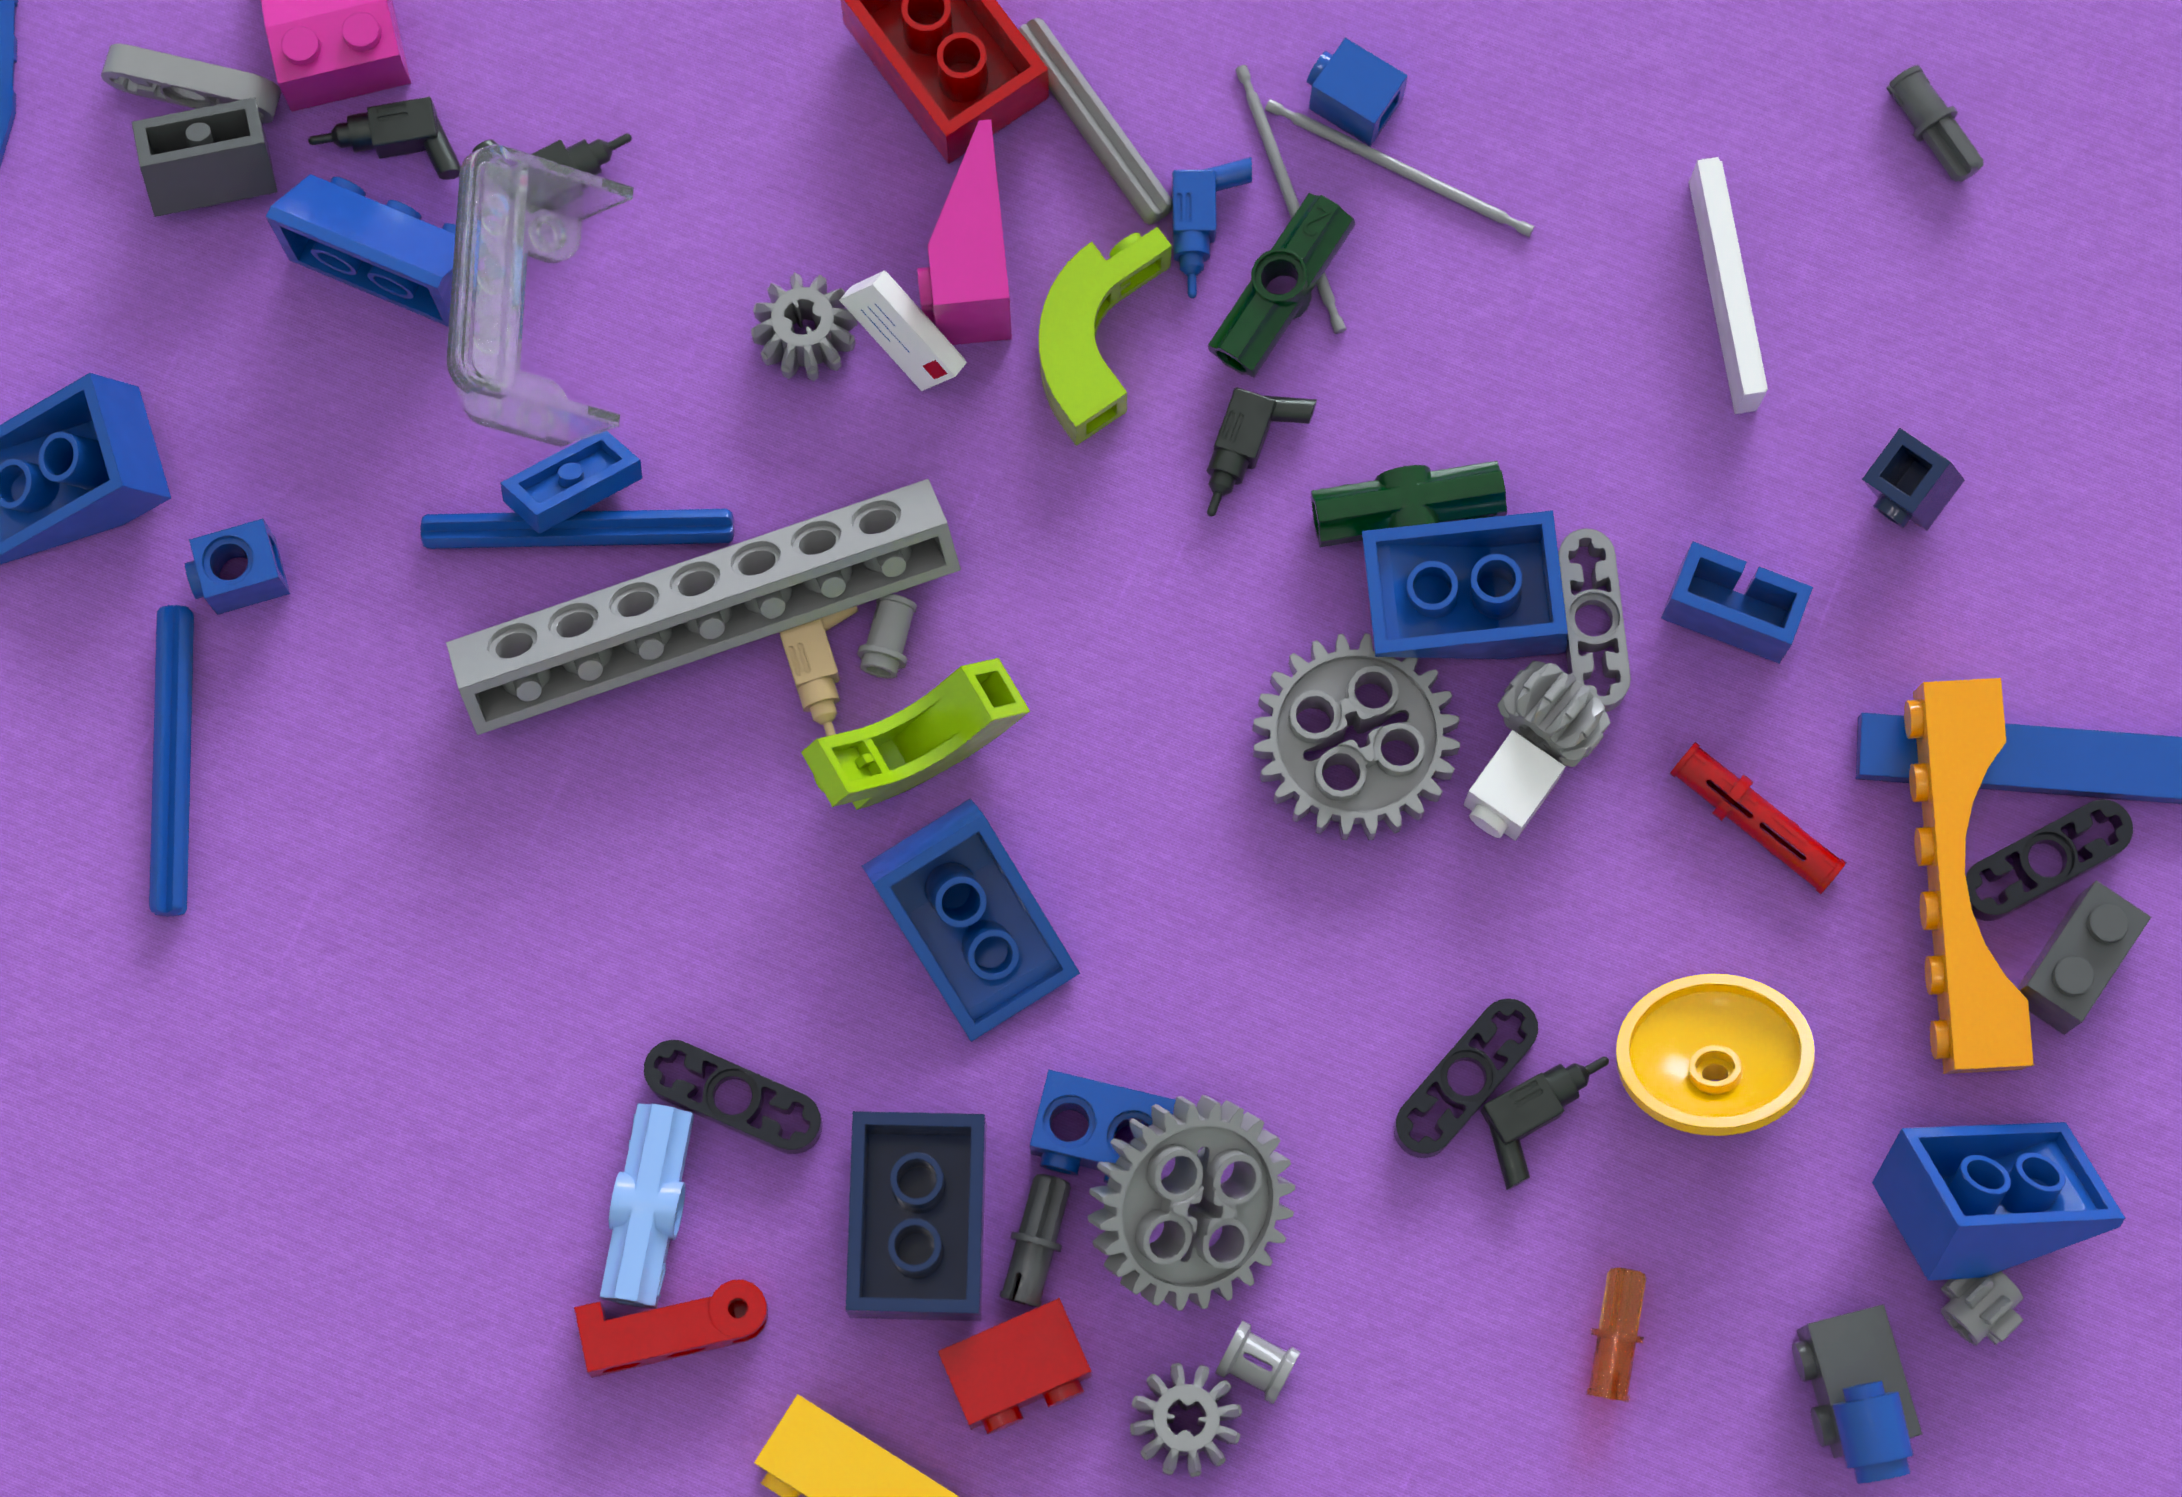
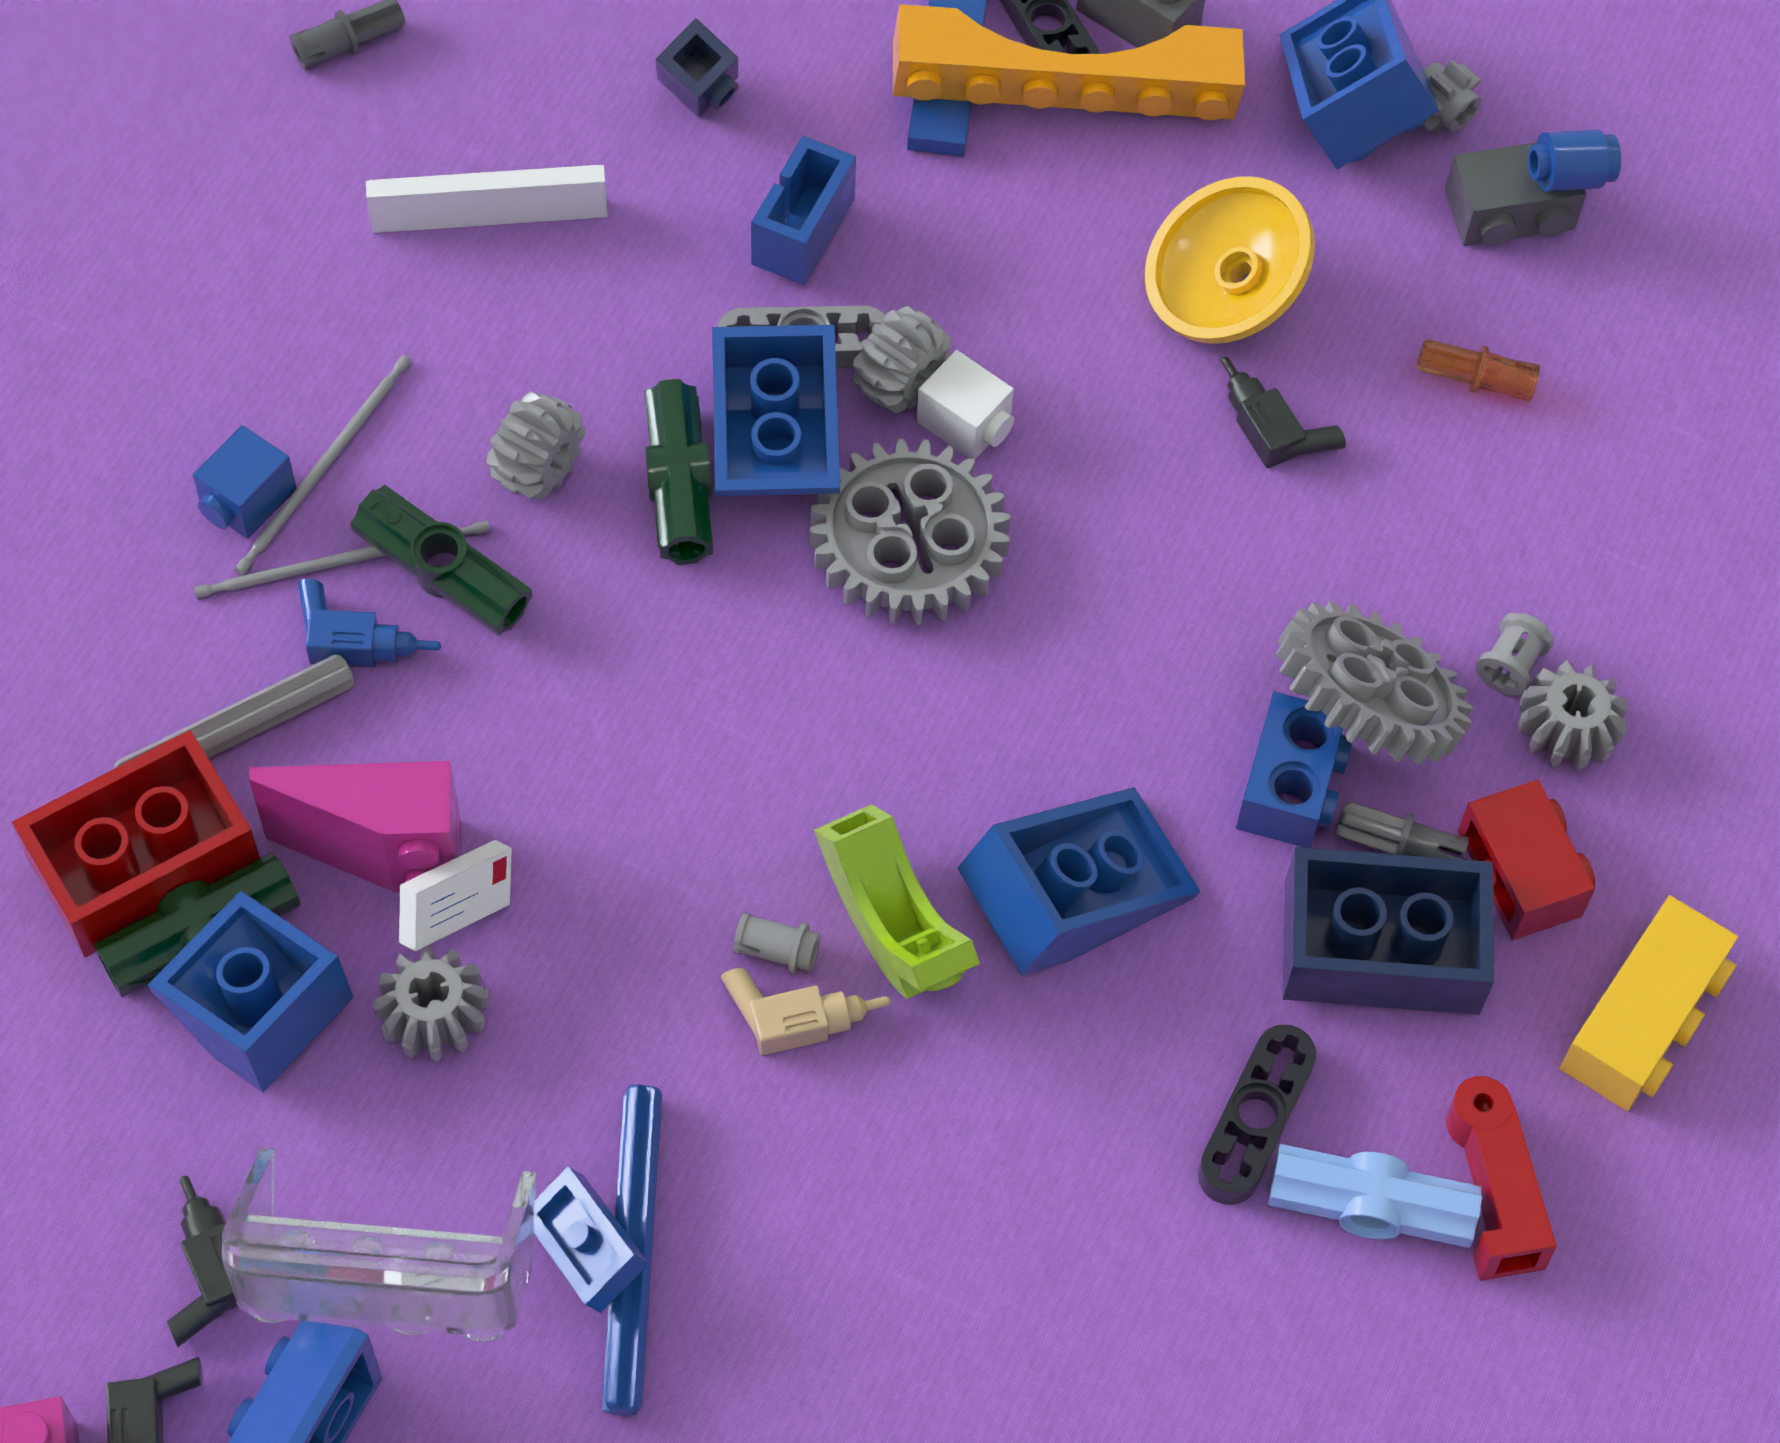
camera: 90 degrees left, 15 degrees down
(702, 606) = (708, 1002): light grey brick -> none
(799, 165) = (253, 990): none -> blue slope
(875, 113) = (147, 946): none -> dark green piece
(1072, 372) = (487, 753): lime arch -> none
(1244, 435) = (592, 609): pearl dark grey piece -> none
(1413, 358) = (535, 445): none -> light grey gear
(1483, 1031) = (1246, 497): black beam -> none
(1698, 771) = (958, 262): red pin -> none

